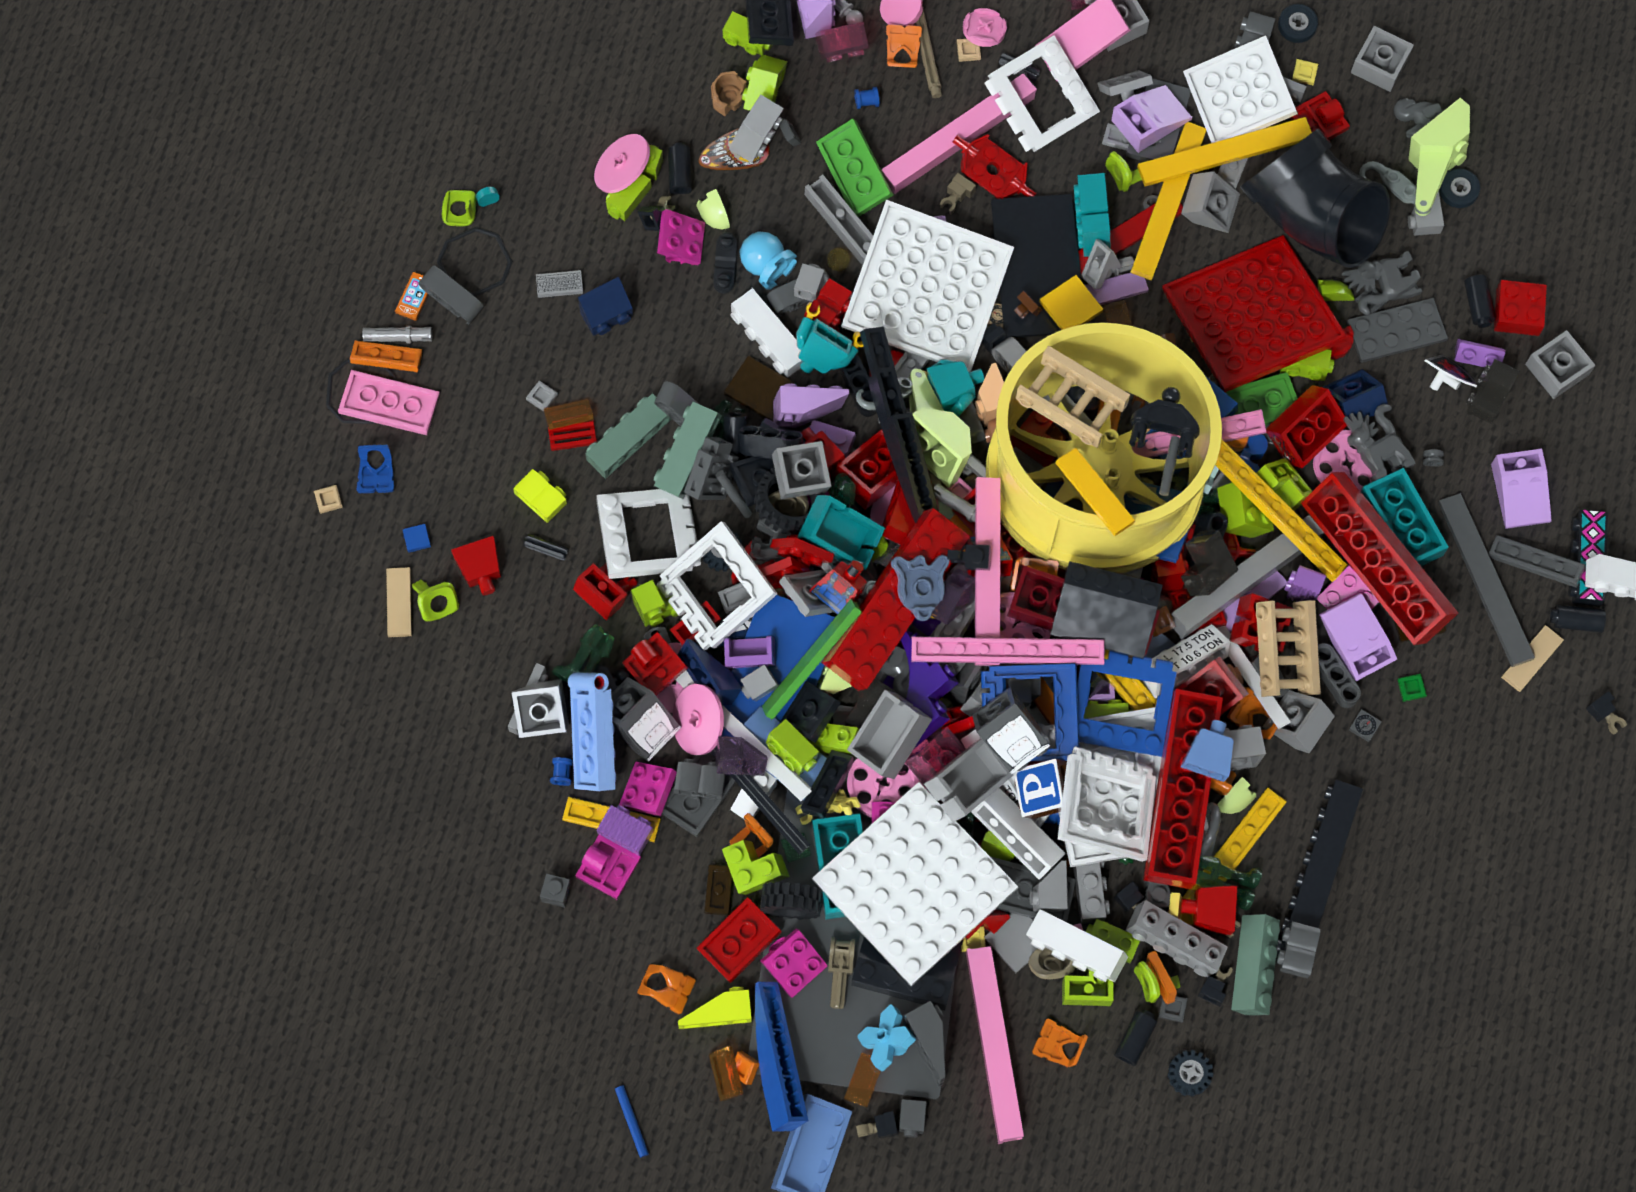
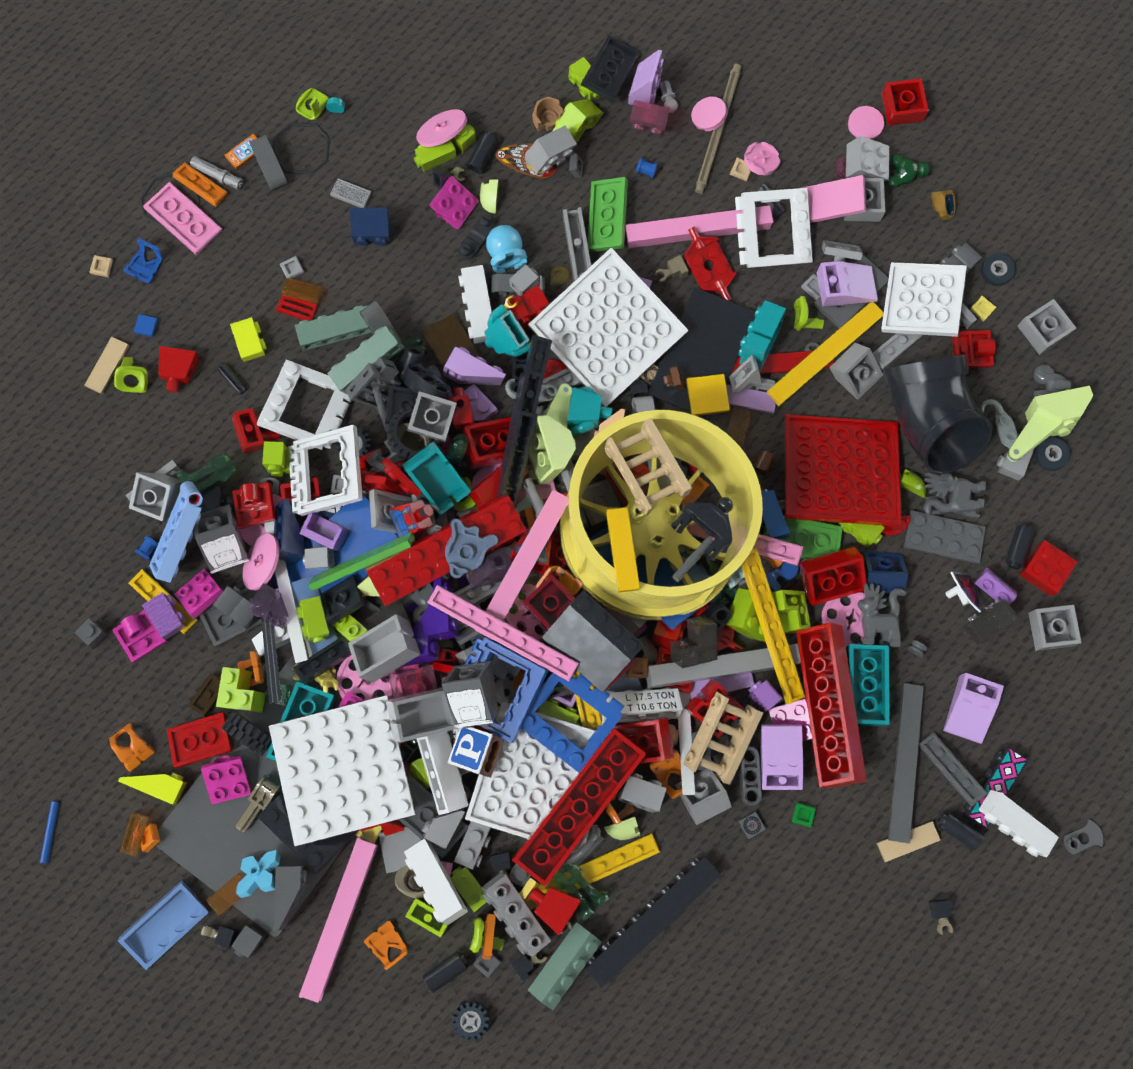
camera: 25 degrees right, 5 degrees up
(777, 1061) = (172, 846): blue slope -> none
(903, 38) = (695, 136): orange piece -> none
(975, 558) = (516, 549): black plate -> none
(1116, 771) = (495, 811): white hinge -> none
(1210, 752) = (611, 792): medium blue torso -> none
(1223, 151) = (886, 337): yellow tile -> none
(1299, 949) = (601, 974): dark grey brick -> none

